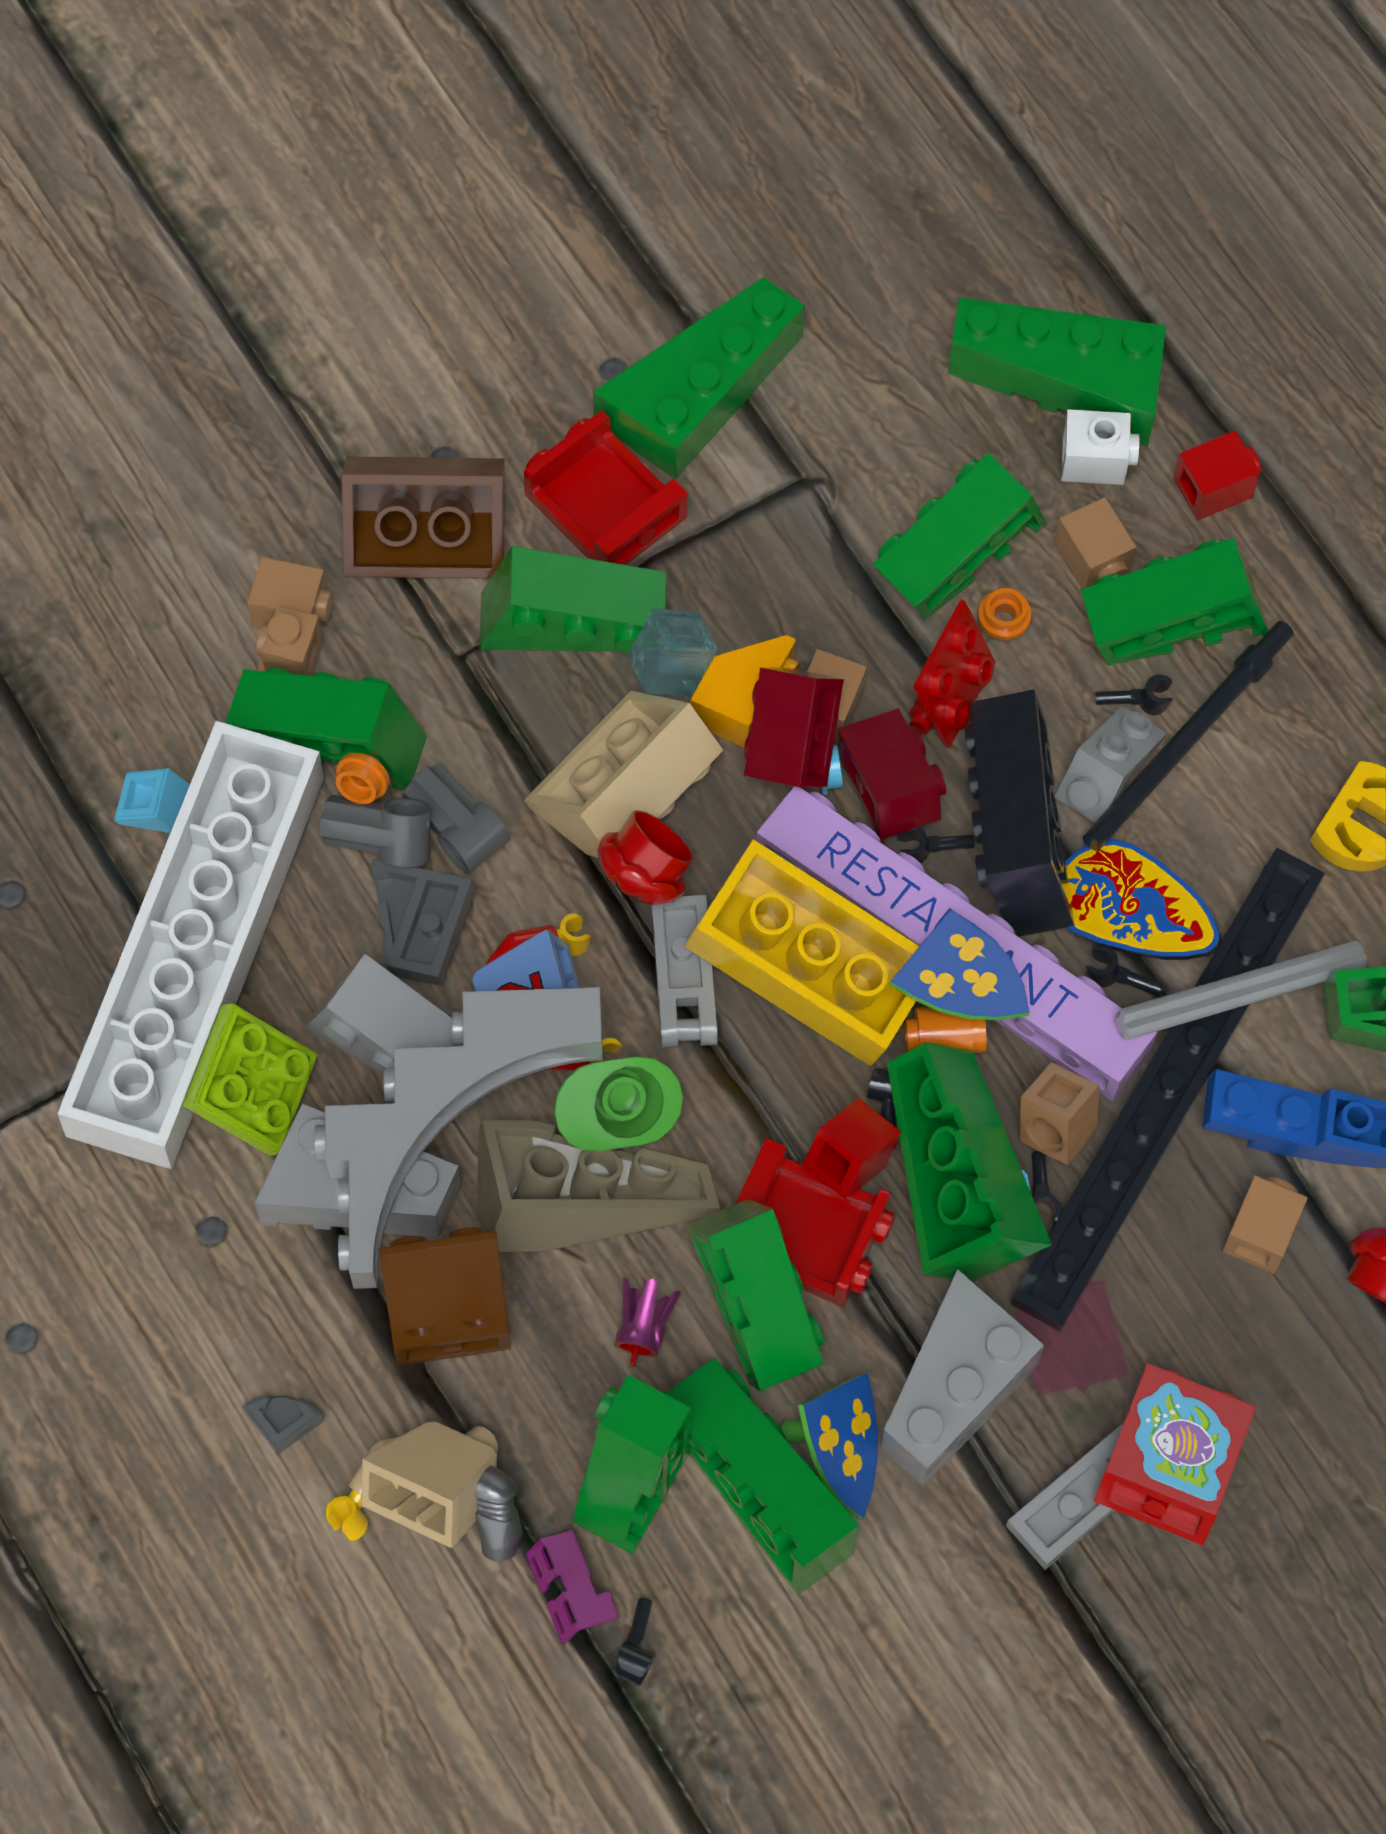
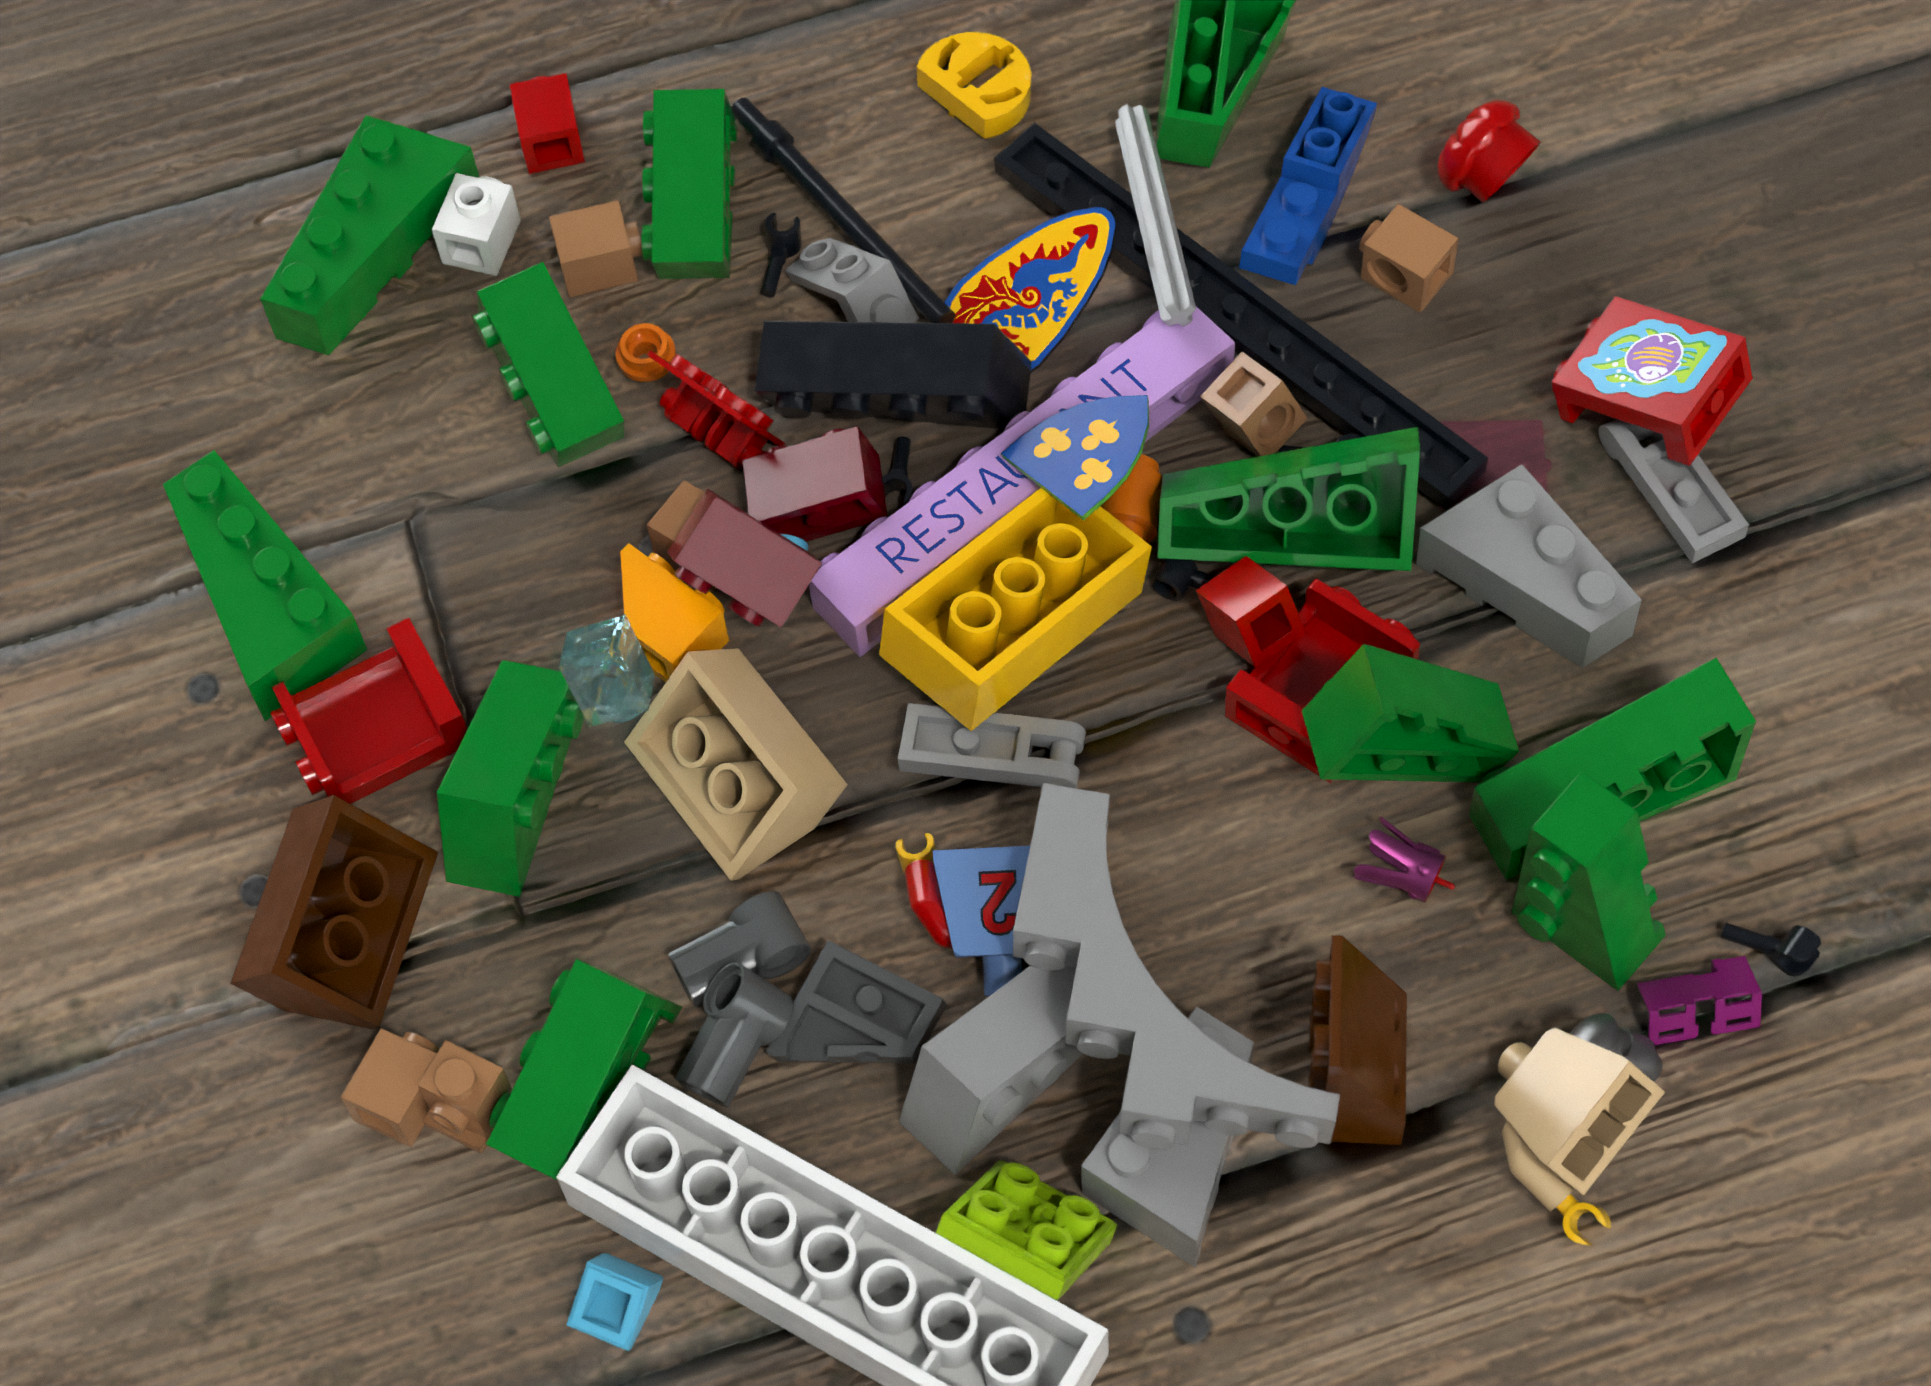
camera: 70 degrees left, 5 degrees down
(282, 1419) = (1449, 1280): dark grey tile -> none
(361, 778) = (674, 1029): orange plate -> none
(554, 1195) = (1234, 908): dark tan wedge -> none
(618, 1103) = (1150, 829): bright green piece -> none
(646, 859) = (864, 742): red piece -> none
(841, 1440) = (1580, 694): blue shield -> none
(1119, 974) = (1093, 334): black hand -> none

